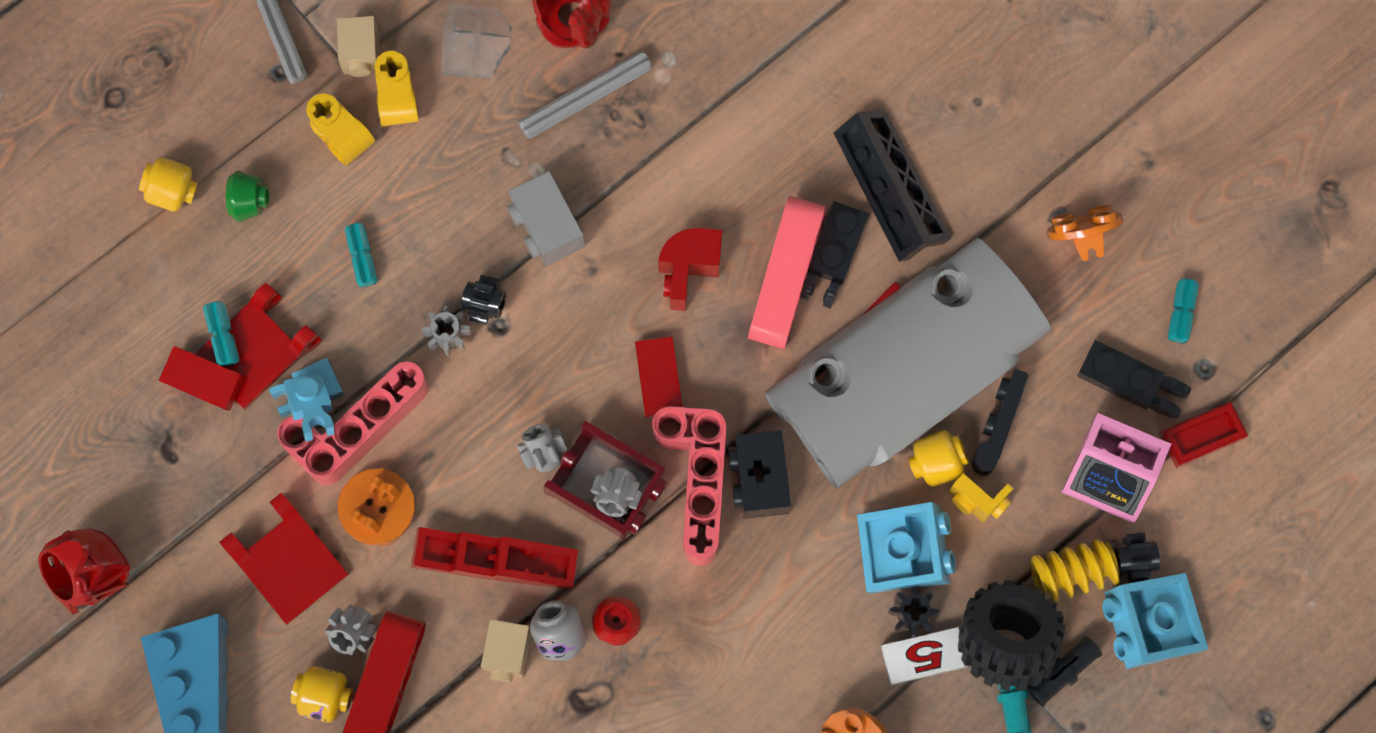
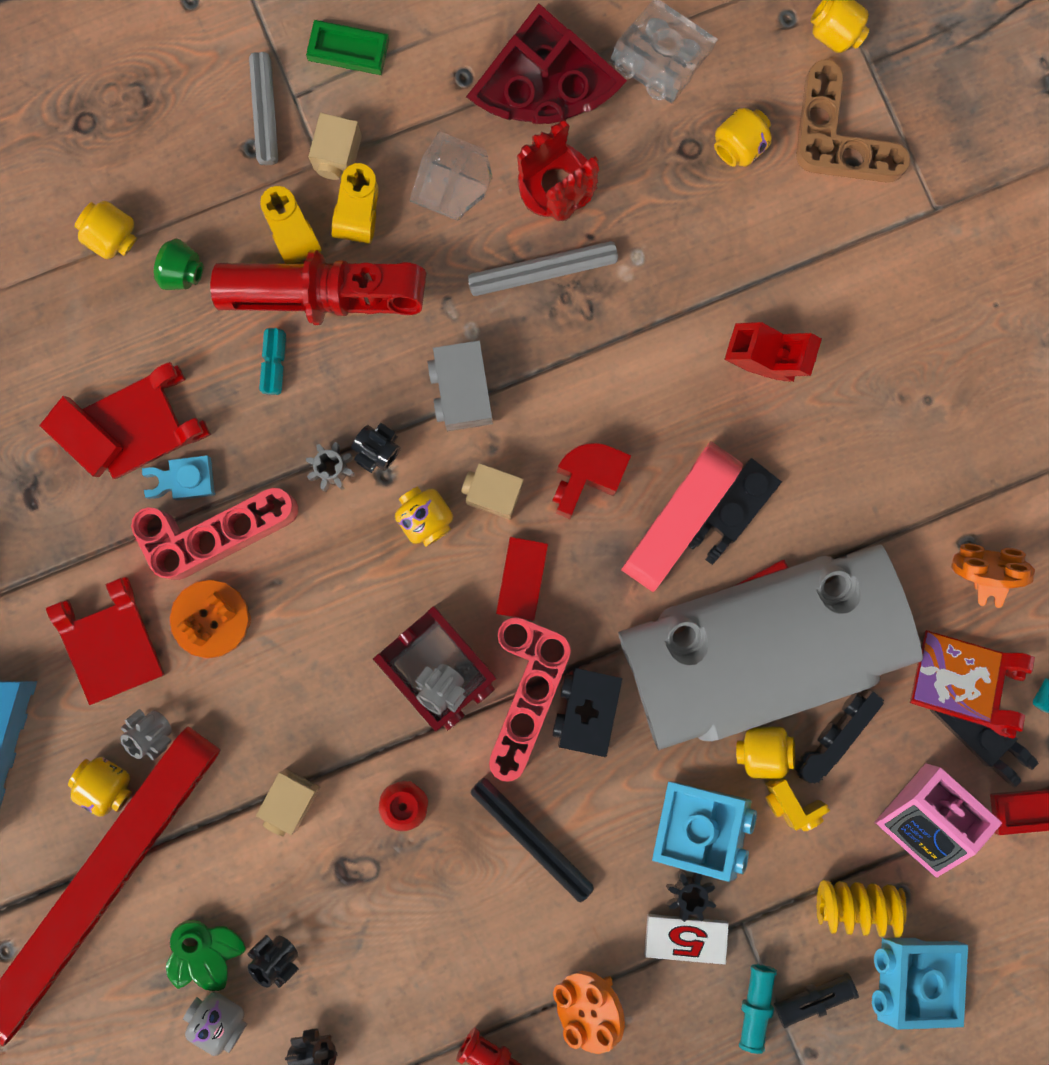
camera: 15 degrees right, 10 degrees up
(222, 341) = (112, 390): teal piece -> none
(310, 402) = (172, 497): medium azure plate -> none
(386, 172) = (319, 287): none -> red piece
(494, 558) = (306, 708): red slope -> none
(542, 447) = (385, 615): light grey gear -> none
(548, 346) = (423, 516): none -> yellow head
(558, 631) = (342, 803): light grey head -> none
(605, 304) = (492, 490): none -> tan brick
(748, 611) = (532, 839): none -> black axle
(819, 103) = (772, 353): none -> red brick
(887, 184) = (809, 458): black fence -> none
(1007, 660) = (804, 944): black tyre -> none
(1101, 335) = (968, 681): none -> flag
(1137, 557) = (927, 915): black gear -> none

